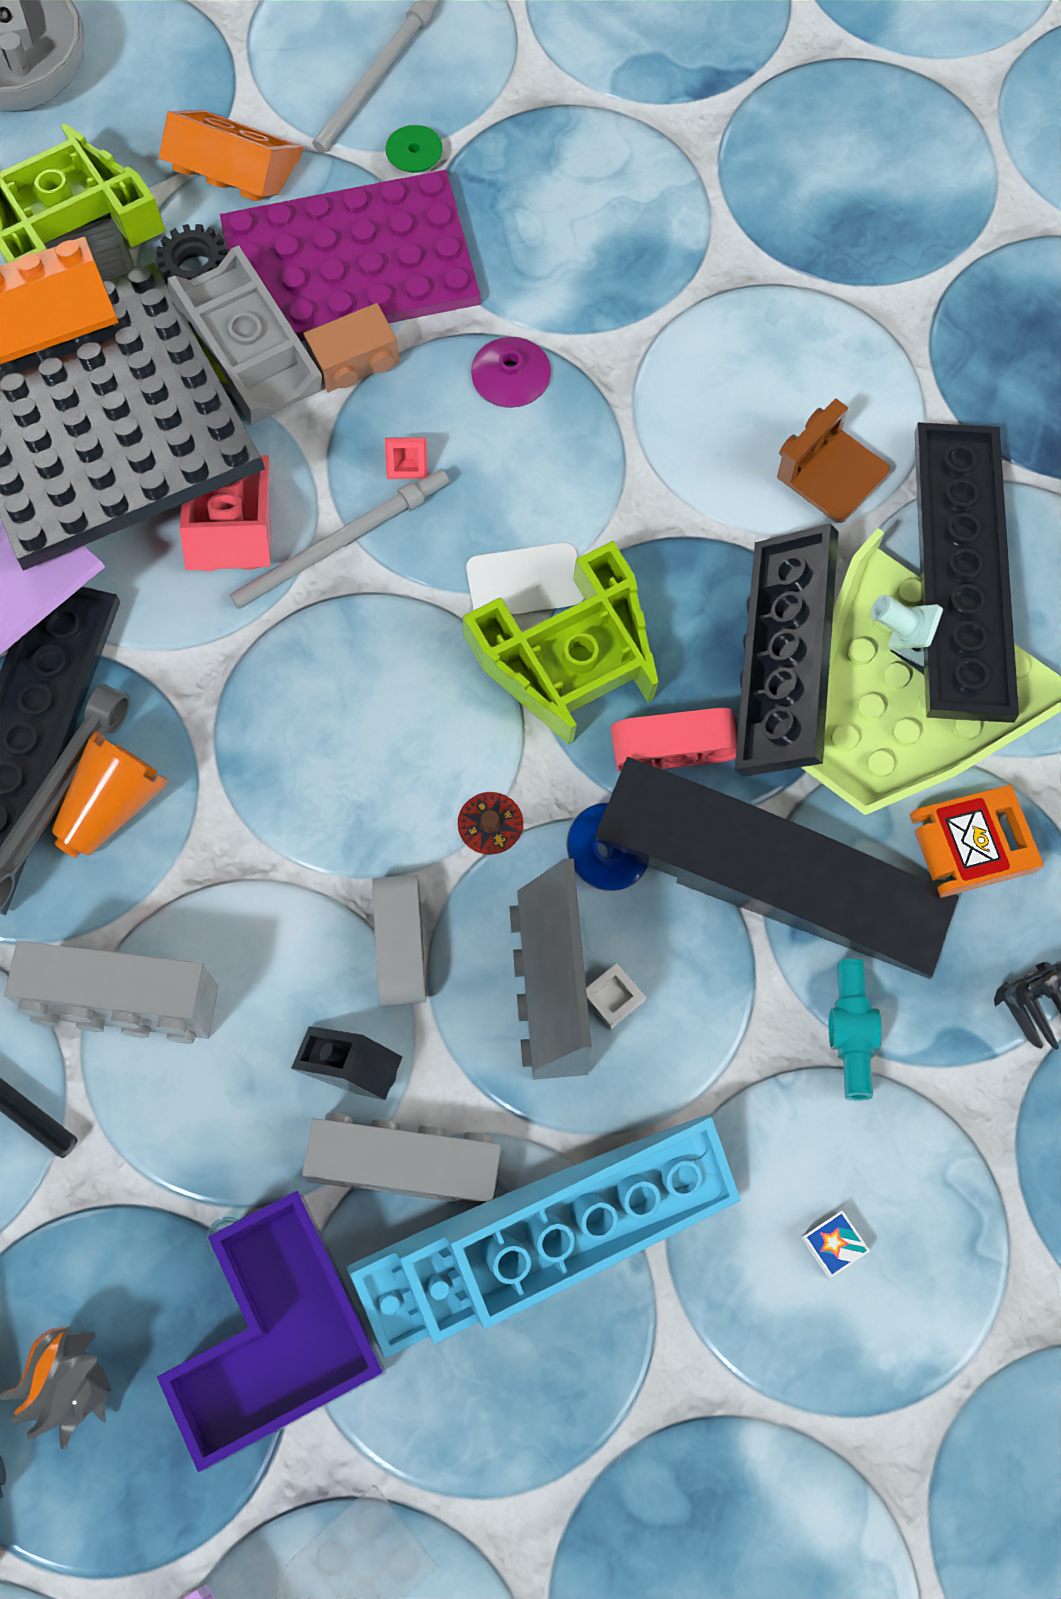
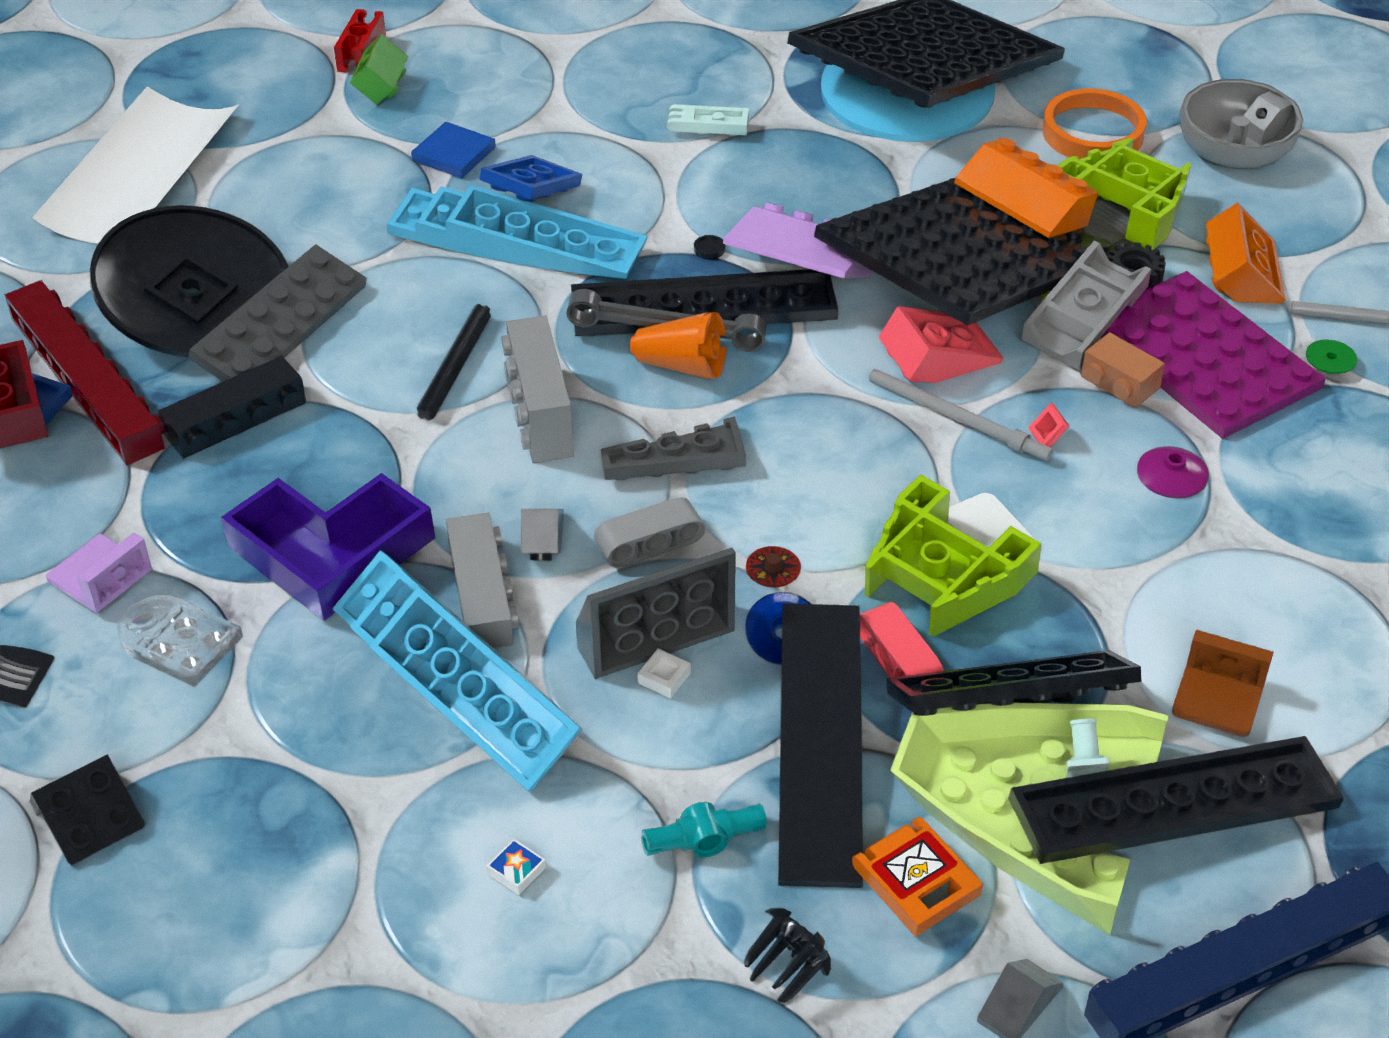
camera: 70 degrees right, 25 degrees down
(60, 1384) = (262, 447): dark grey hair -> none
(280, 848) = (671, 453): none -> dark grey wing

